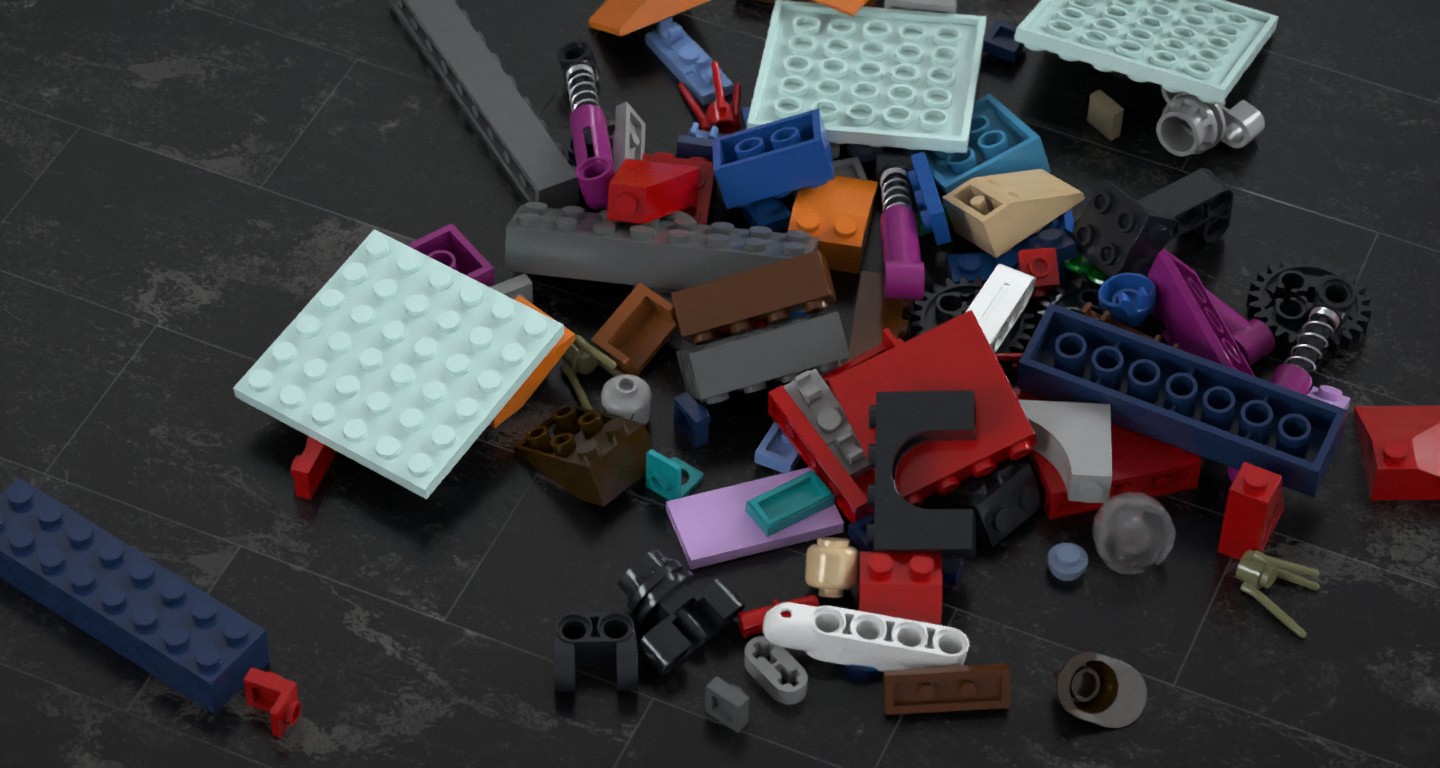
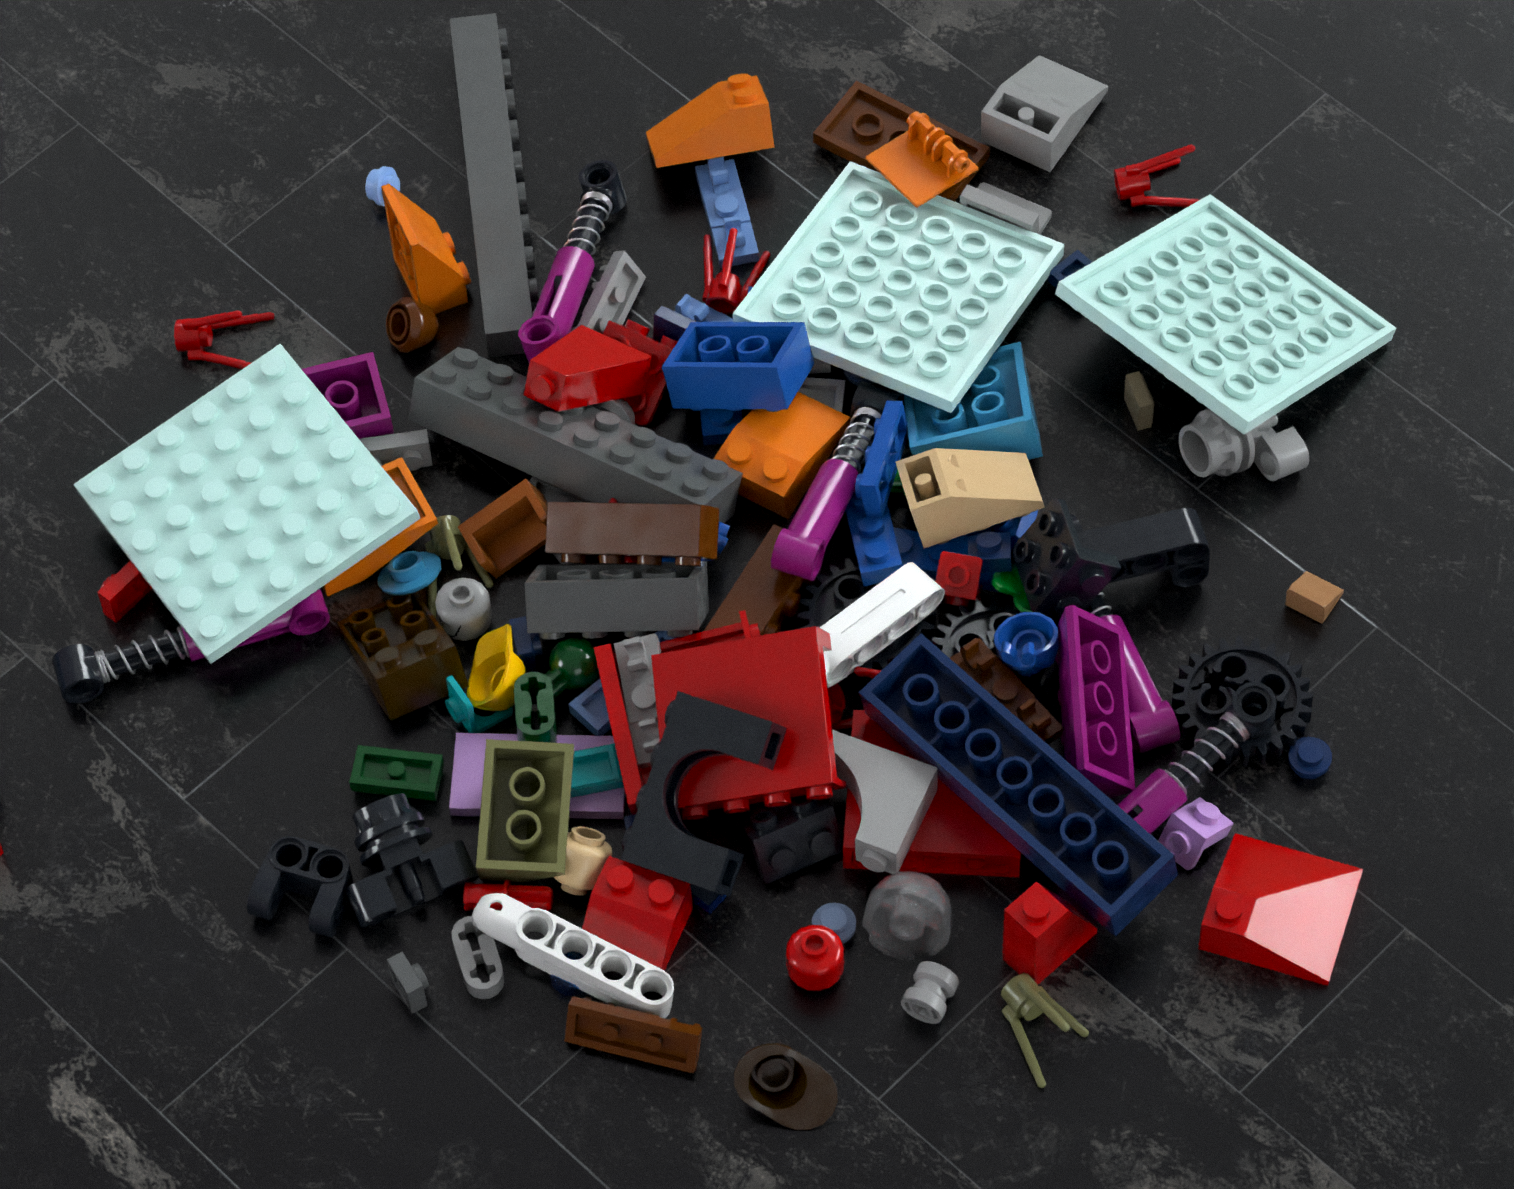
camera: 25 degrees right, 10 degrees up
(274, 253) = (196, 334): none -> red plant
(309, 540) = (83, 672): none -> piece
(384, 107) = (379, 178): none -> light blue plate
(452, 145) = (424, 254): none -> orange slope
(463, 203) = (410, 324): none -> reddish brown cone
(560, 390) = (409, 572): none -> dark azure piece
(626, 544) = (396, 772): none -> dark green plate
(681, 438) = (494, 671): none -> yellow cap
(731, 457) = (570, 667): none -> dark green beam
(768, 536) = (524, 810): none -> olive slope
(953, 264) = (873, 543): none -> blue plate
(1070, 586) = (815, 957): none -> red head
(1178, 587) = (929, 993): none -> light grey wheel
(1319, 222) = (1313, 596): none -> medium nougat slope
(1383, 336) = (1310, 757): none -> dark blue plate

